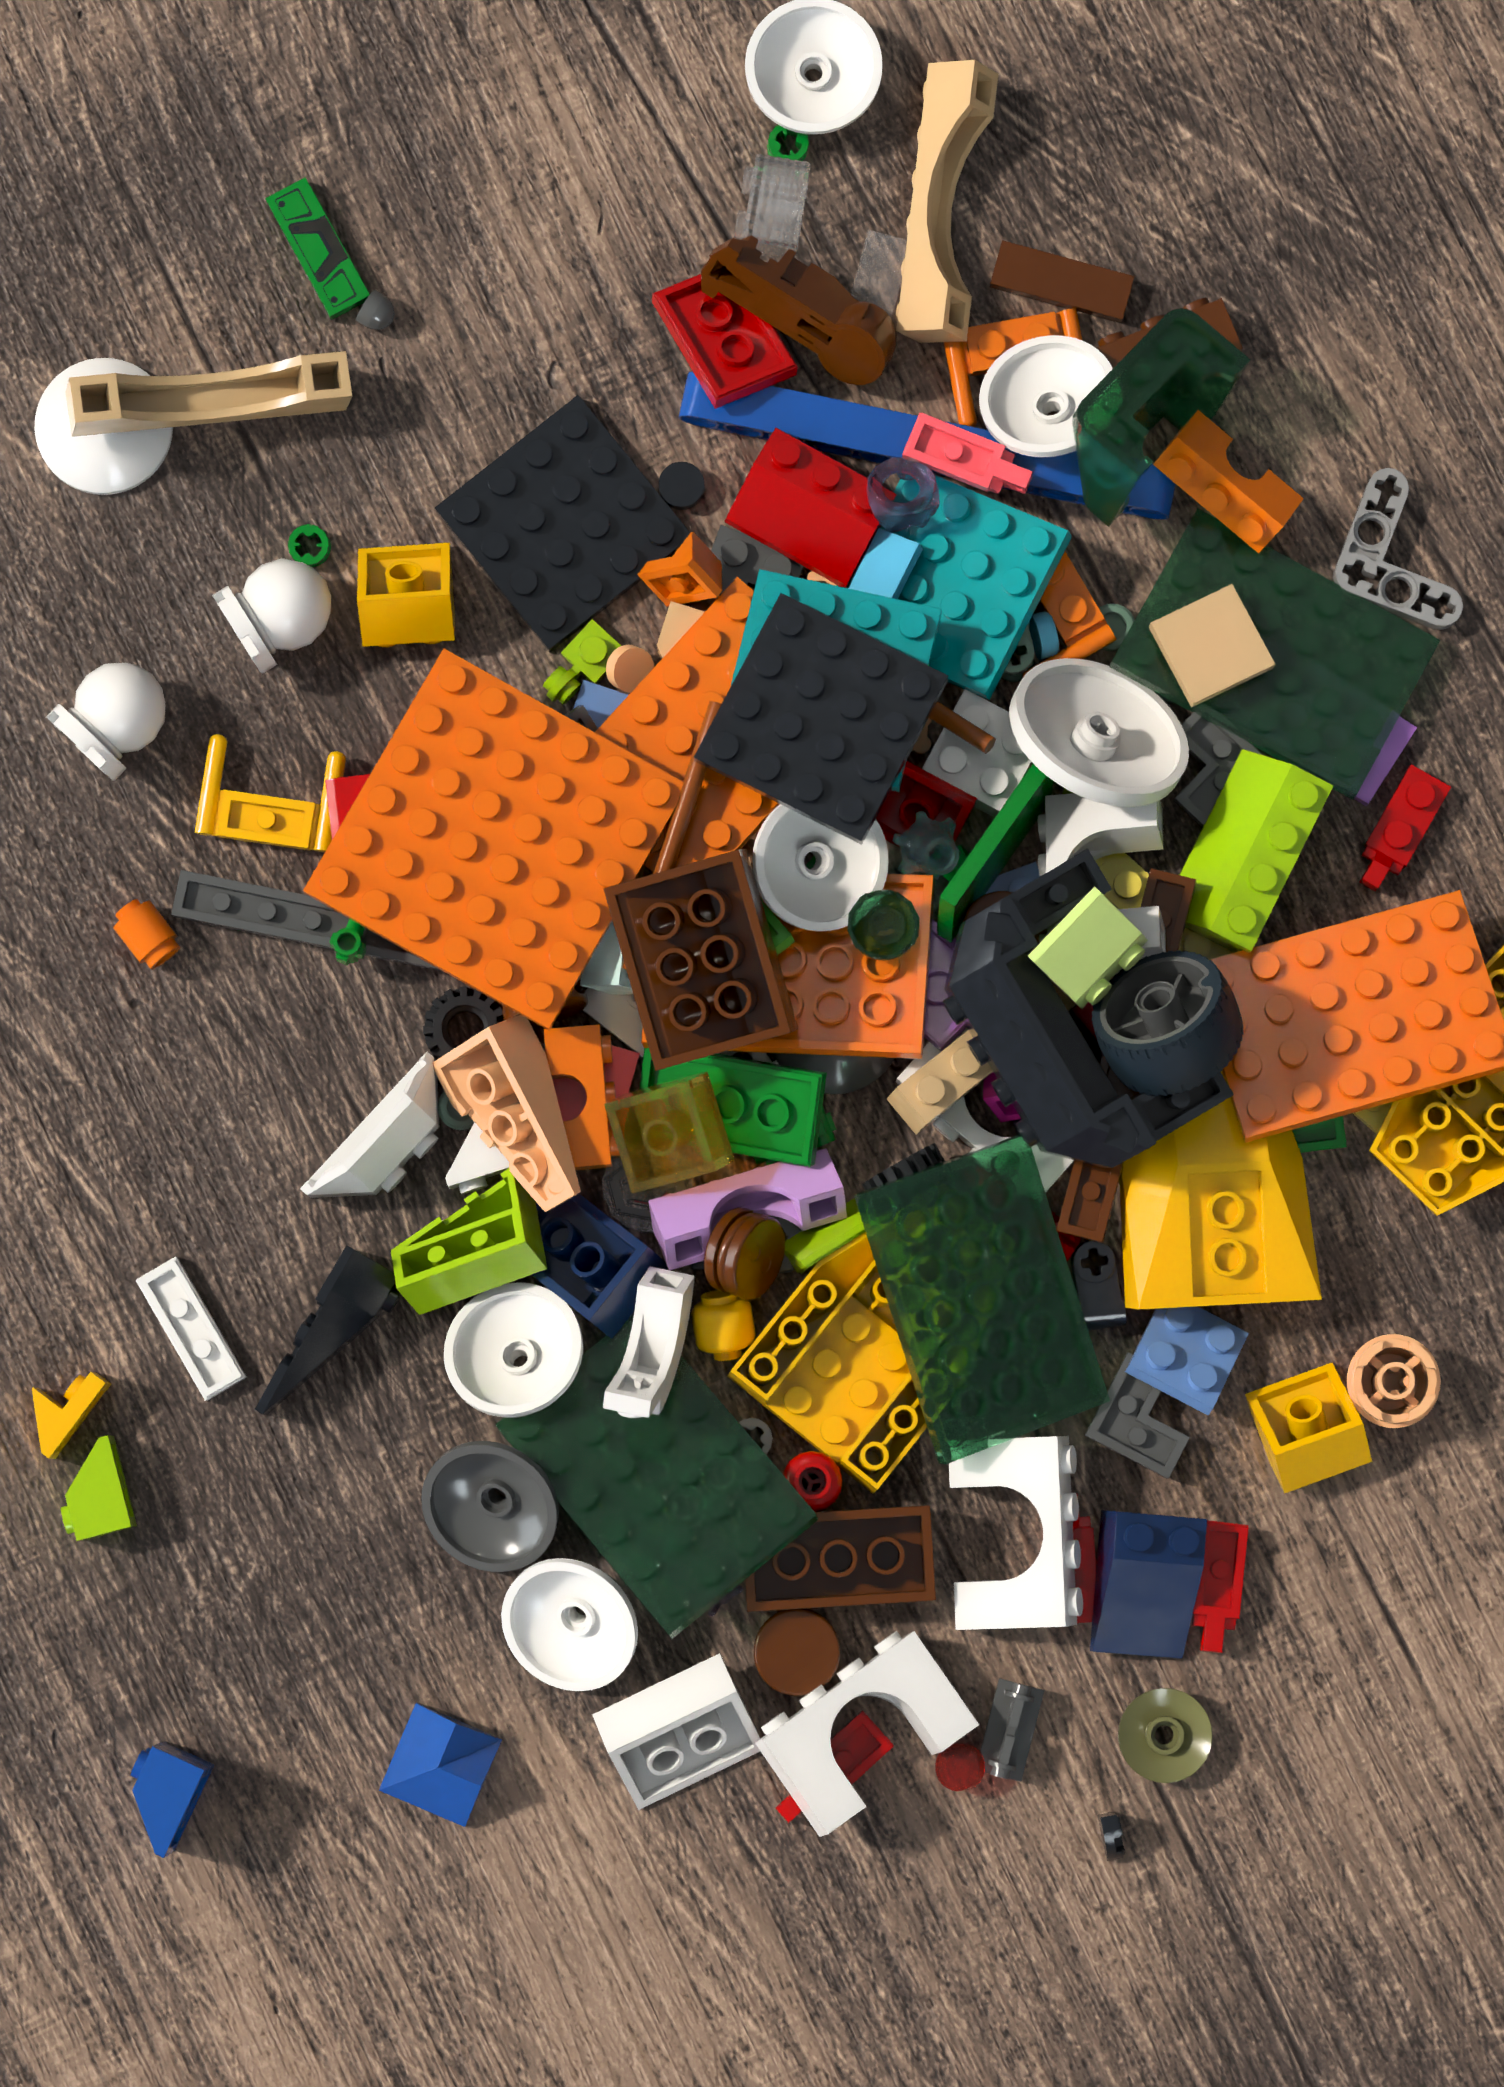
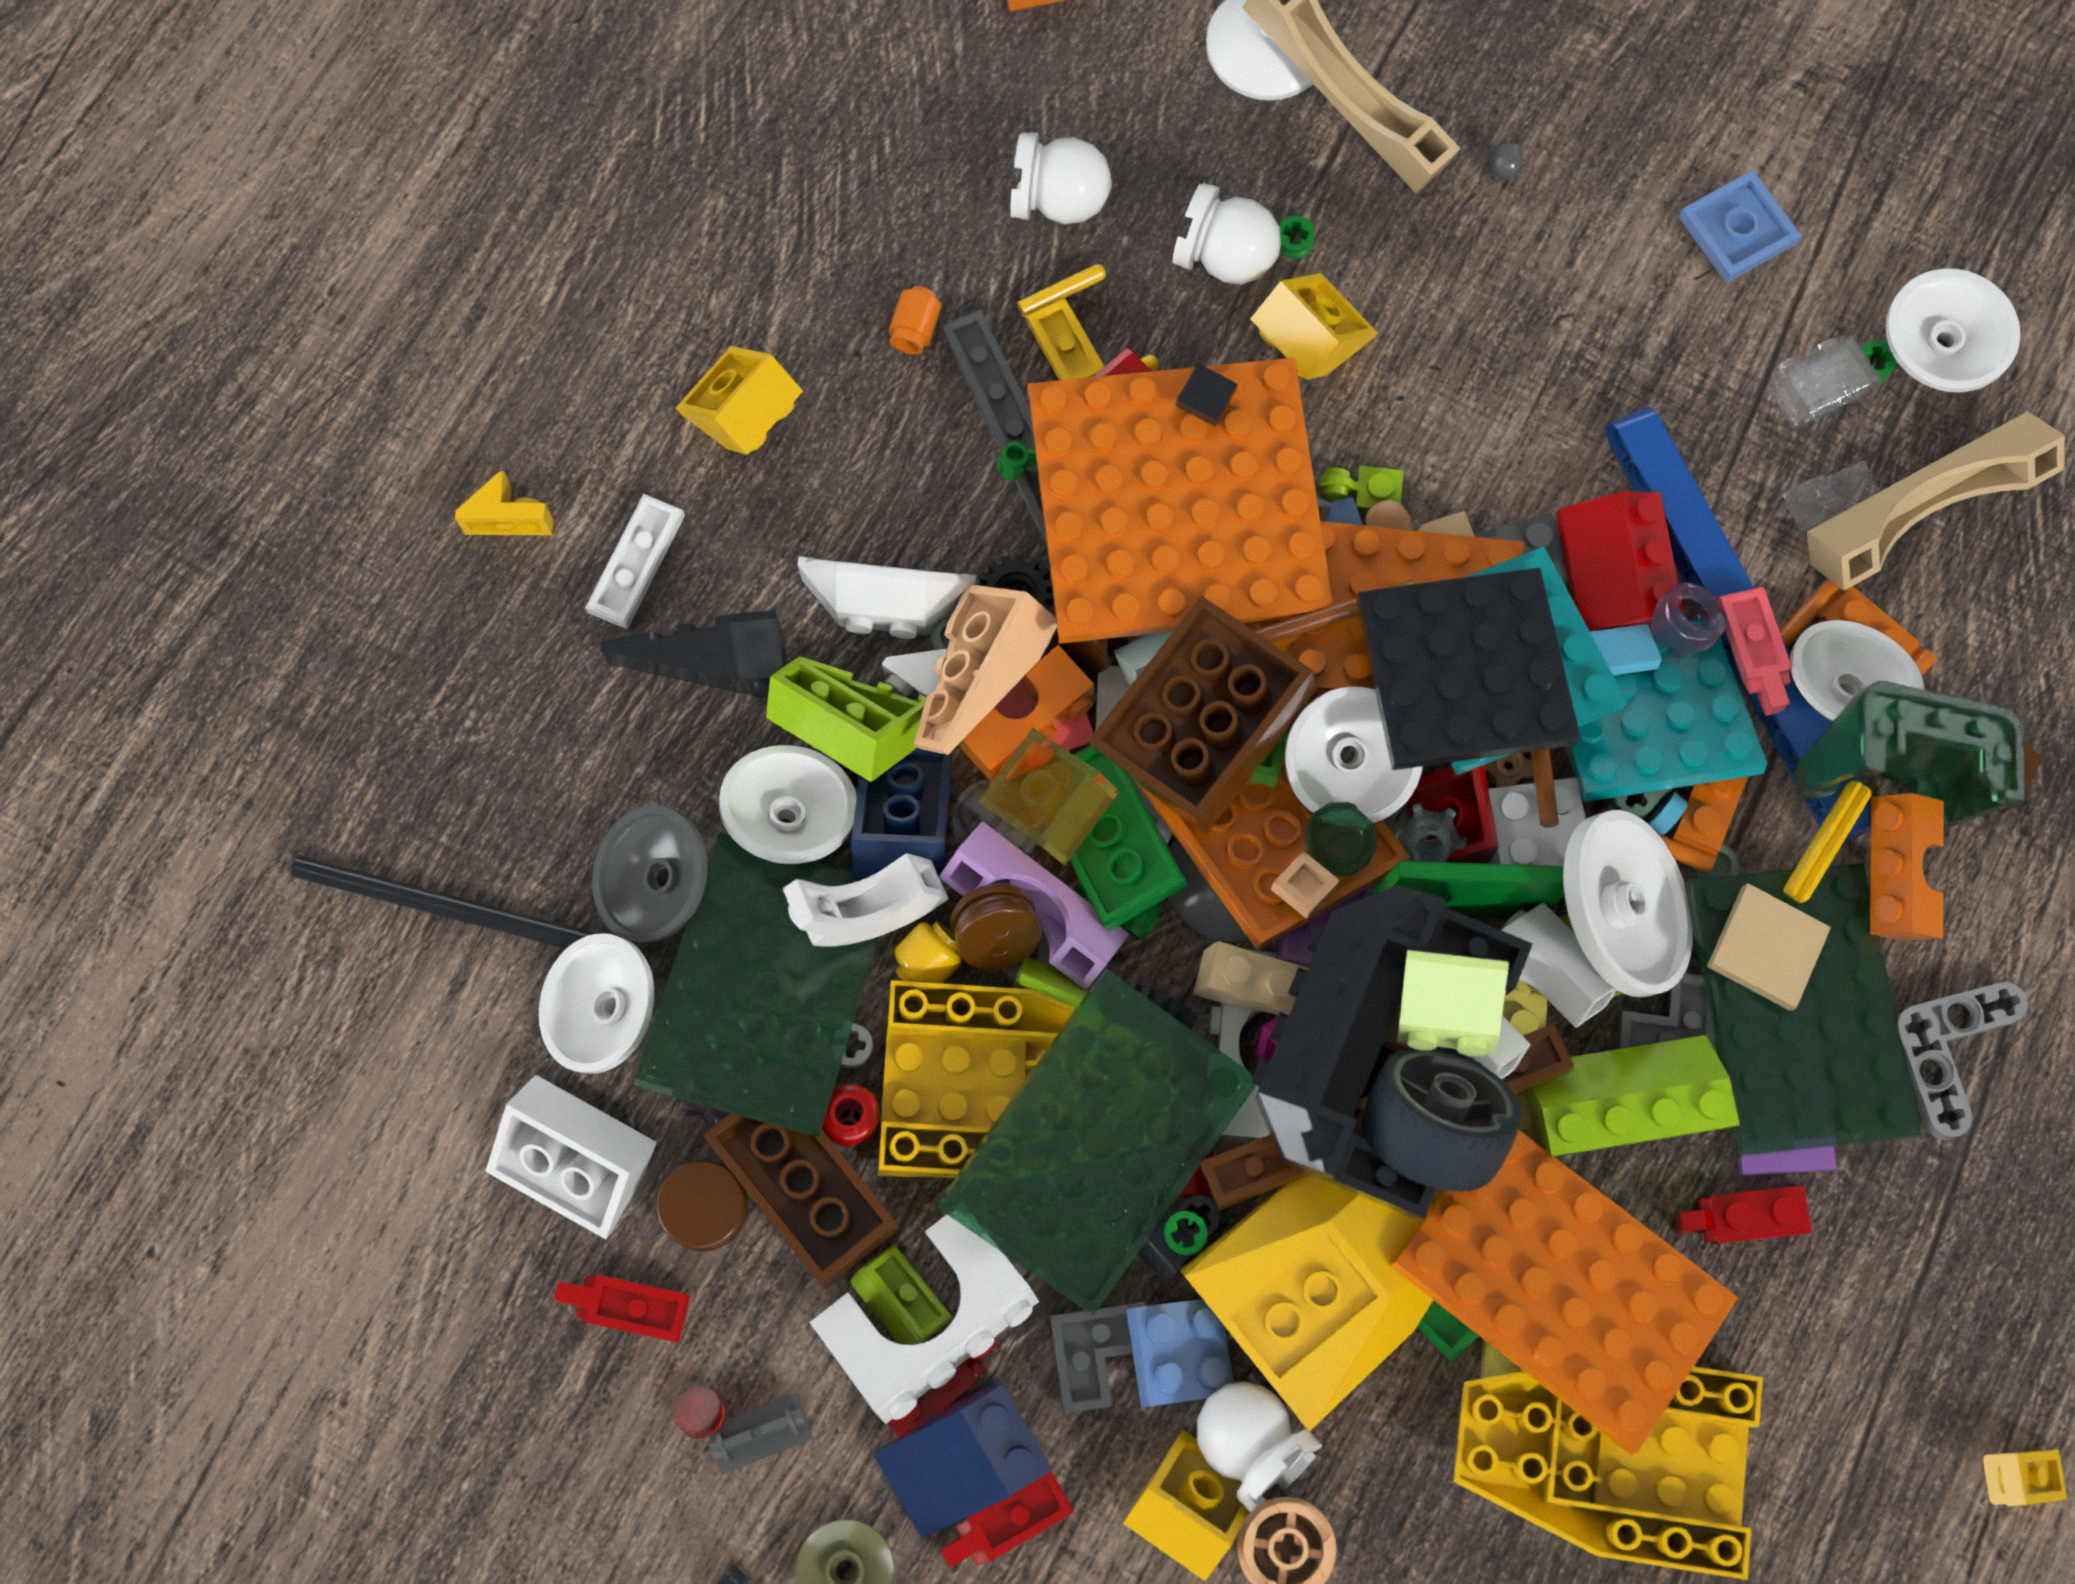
camera: 55 degrees right, 10 degrees down
(98, 1495) = (456, 579): lime slope -> none
(108, 1136) = (740, 399): none -> yellow slope
(167, 1792) = (245, 788): blue slope -> none
(318, 248) = (1518, 91): green tile -> none
(382, 1697) = (436, 902): none -> black piece
(428, 750) = (1206, 394): none -> black tile
(440, 1764) = (417, 988): blue slope -> none
(563, 523) = (1459, 402): black plate -> none
(584, 160) = (1739, 226): none -> medium blue plate
(681, 485) = (1556, 465): black tile -> none
(687, 576) = (1494, 506): orange slope -> none
(723, 342) = (1697, 410): red tile -> none
(801, 1745) = (740, 1301): white arch -> none
(806, 304) = (1770, 450): reddish brown piece -> none
(899, 982) = (1305, 885): none -> light nougat plate
(984, 1544) = (900, 1298): none -> lime slope
(1061, 281) = (1947, 633): reddish brown tile -> none
(1114, 1274) = (1172, 1227): none -> green bush
(1165, 534) = (1827, 841): none -> yellow axle
(1291, 1348) = (1251, 1439): none -> white tile

